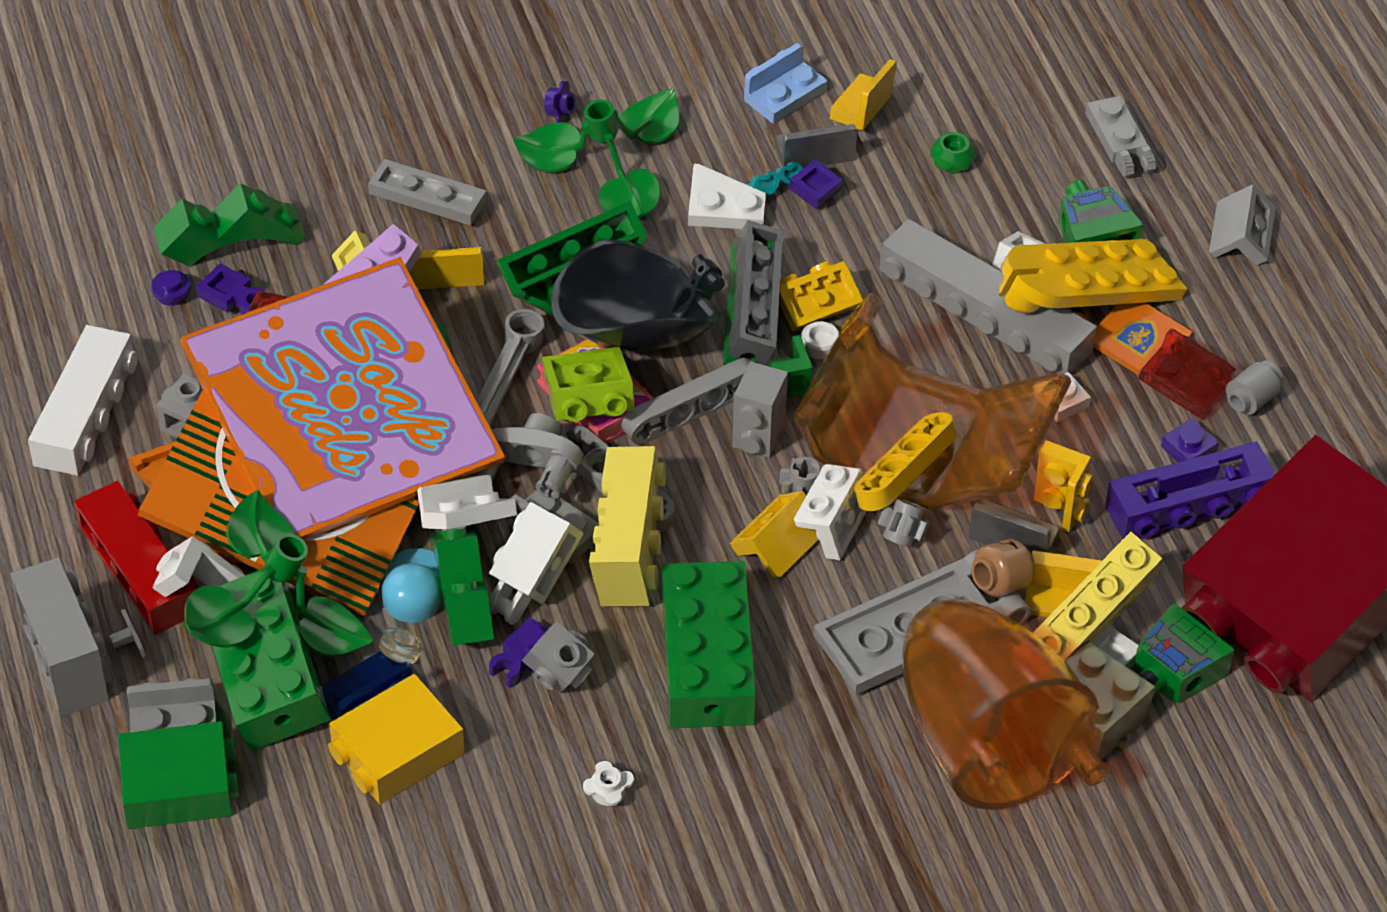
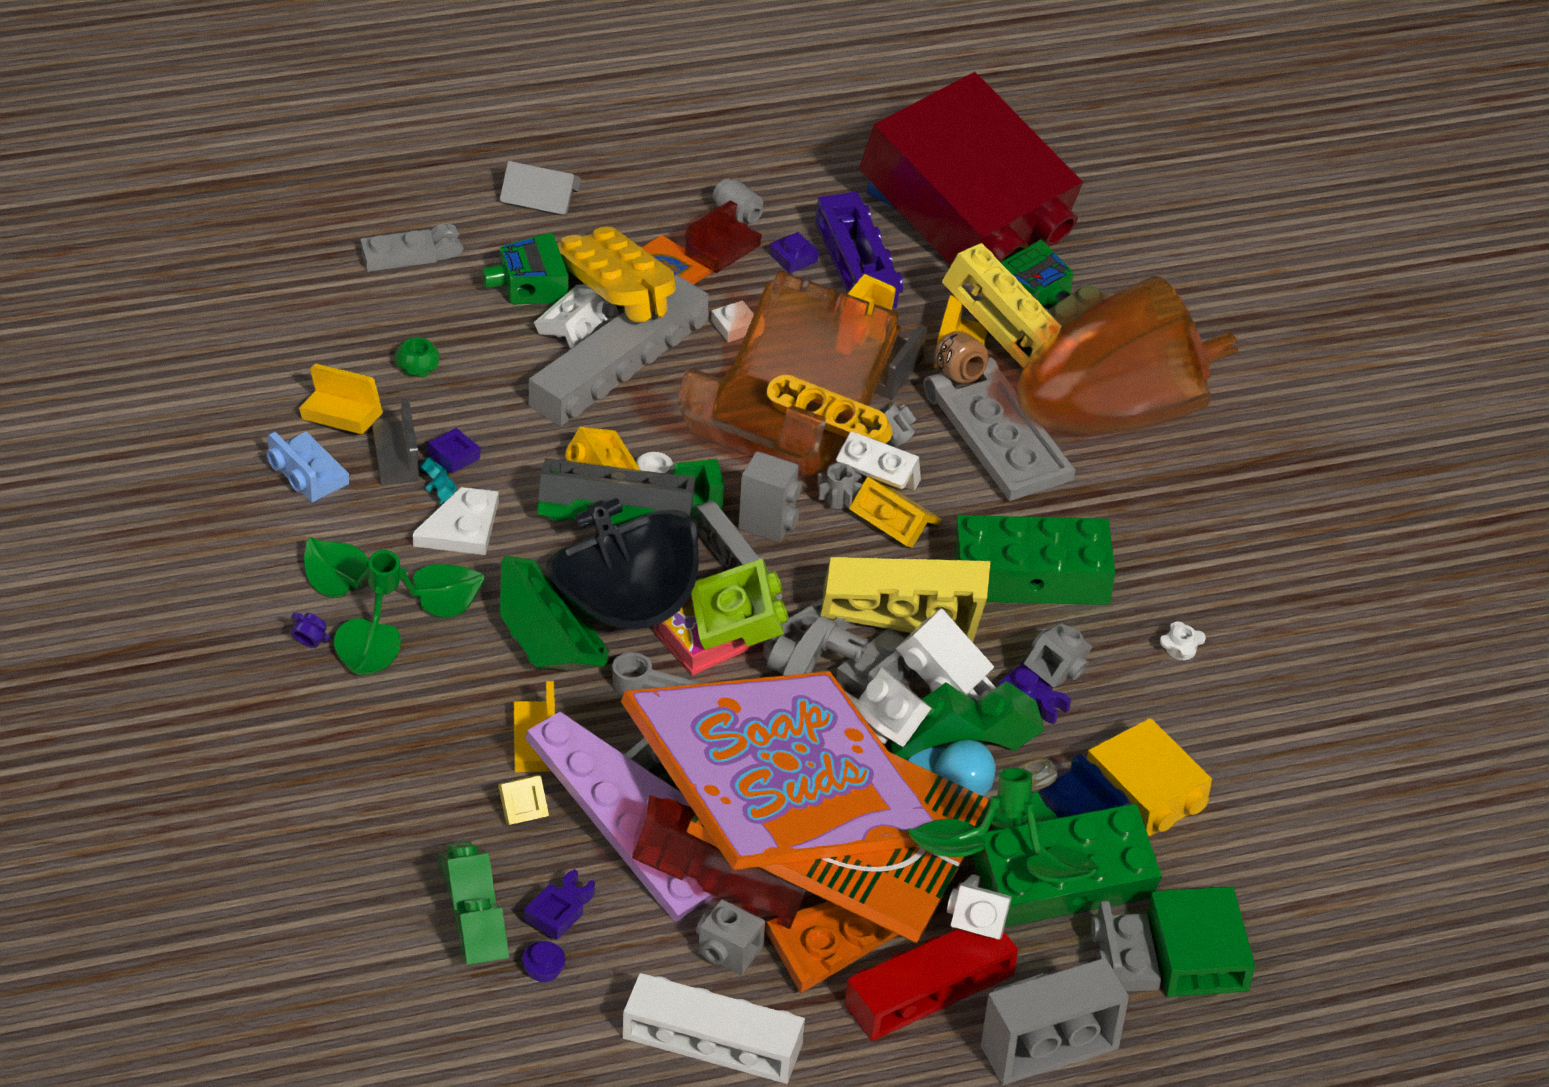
camera: 90 degrees left, 5 degrees down
(427, 192) = (427, 742): light grey plate -> none

